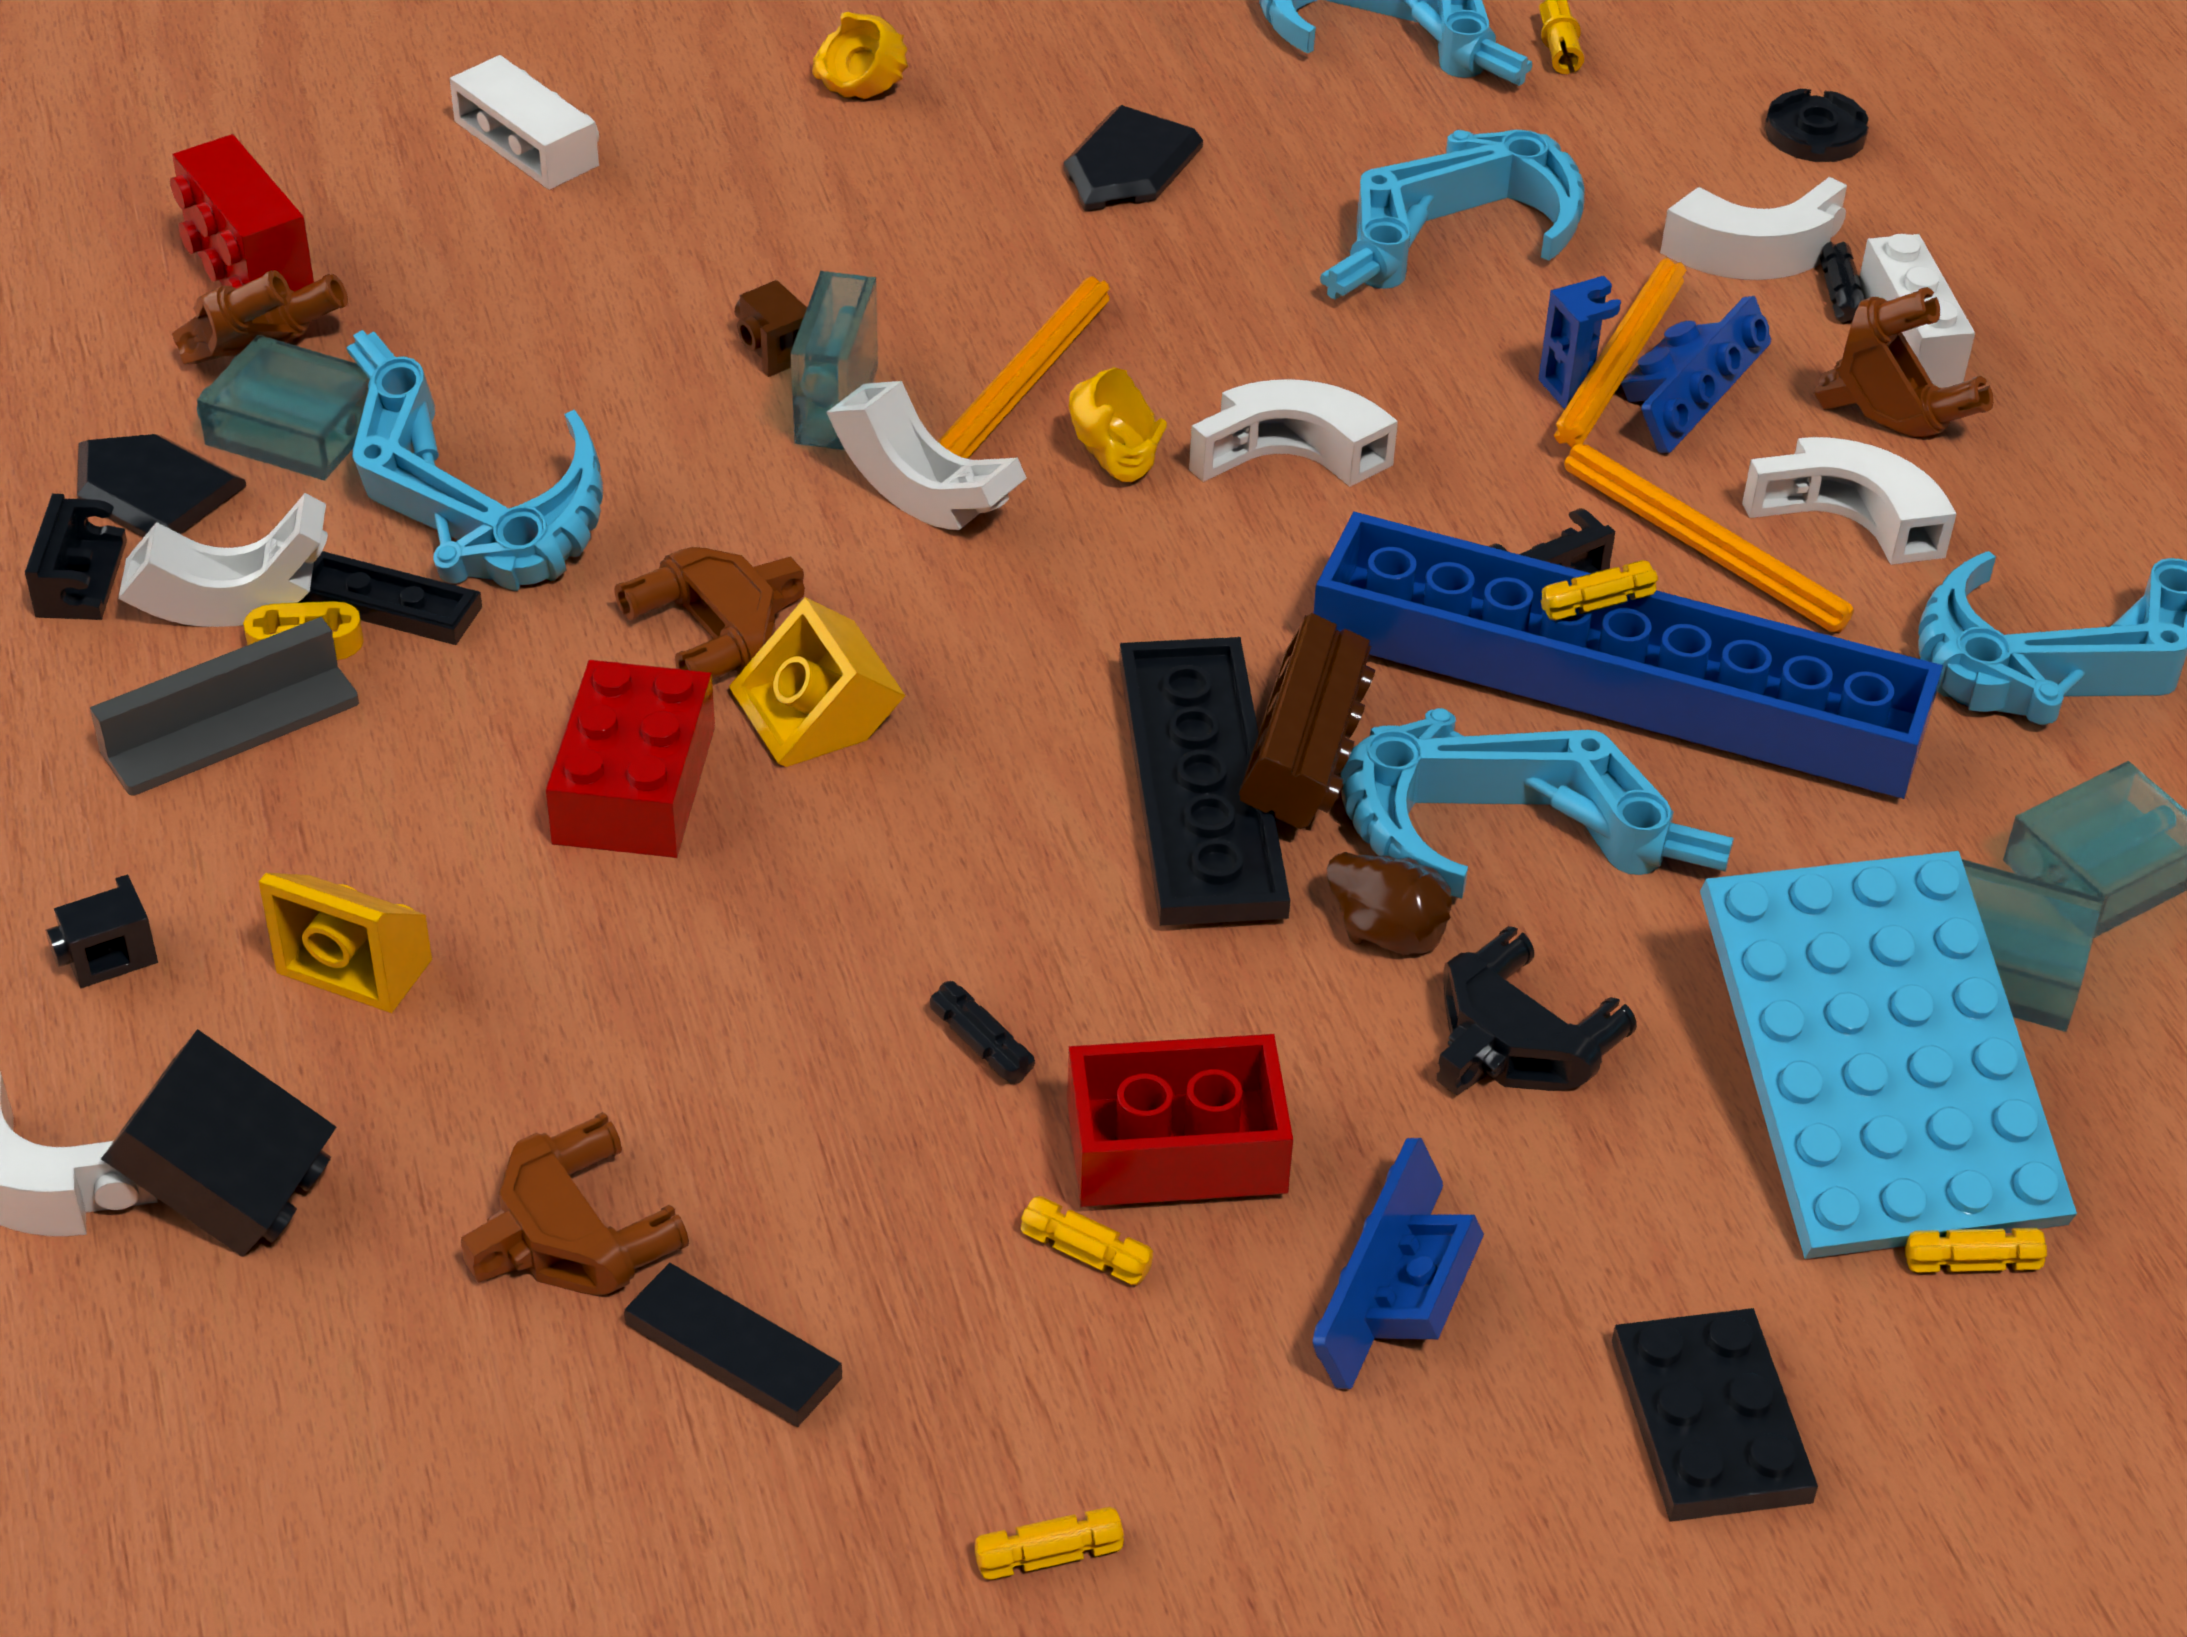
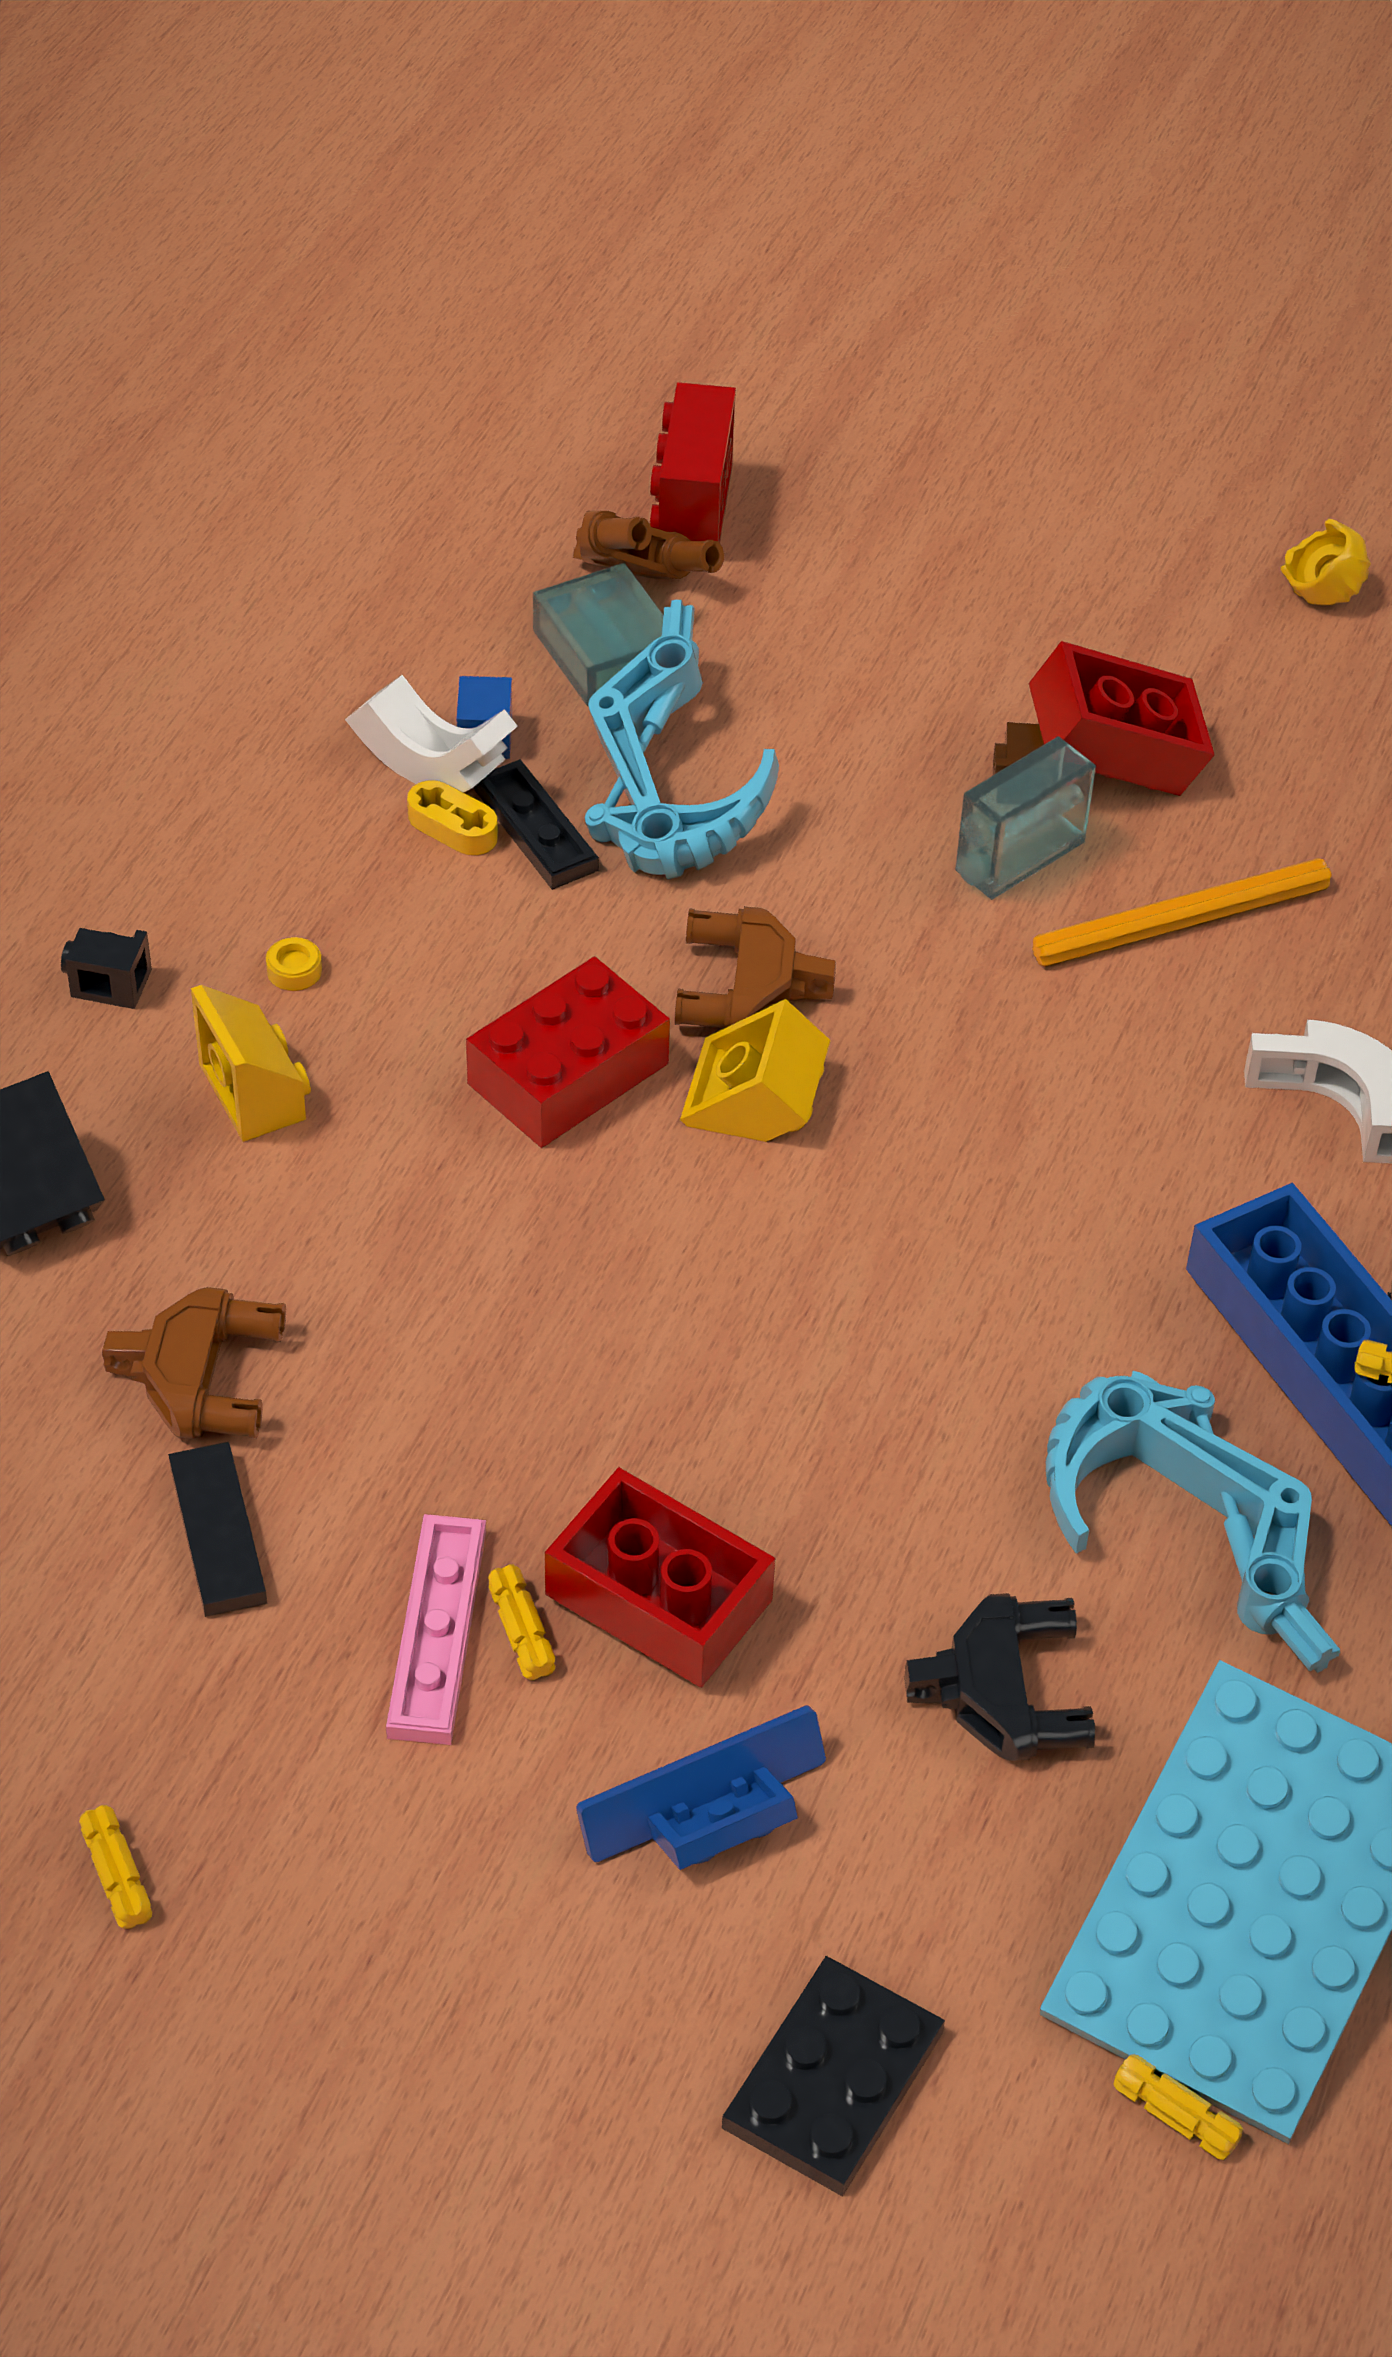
camera: 40 degrees right, 5 degrees up
(74, 560) = (349, 670): black hinge -> none
(152, 481) = (463, 636): black tile -> none
(222, 707) = (343, 844): dark grey panel -> none
(241, 515) = (482, 699): none -> blue brick
(281, 835) = (293, 964): none -> yellow tile
(525, 122) = (1007, 486): white brick -> none
(838, 231) = (1123, 717): none -> red brick
(910, 466) = (1008, 935): white arch -> none
(982, 1032) = (608, 1418): black axle -> none
(1019, 1297) = (436, 1630): none -> bright pink tile
(1049, 1543) = (274, 1816): yellow axle -> none
(1116, 424) = (1204, 997): yellow hair -> none
(1191, 751) = (969, 1330): black plate -> none
(1309, 723) = (1087, 1331): reddish brown brick -> none
(1390, 901) = (1007, 1518): reddish brown hair -> none

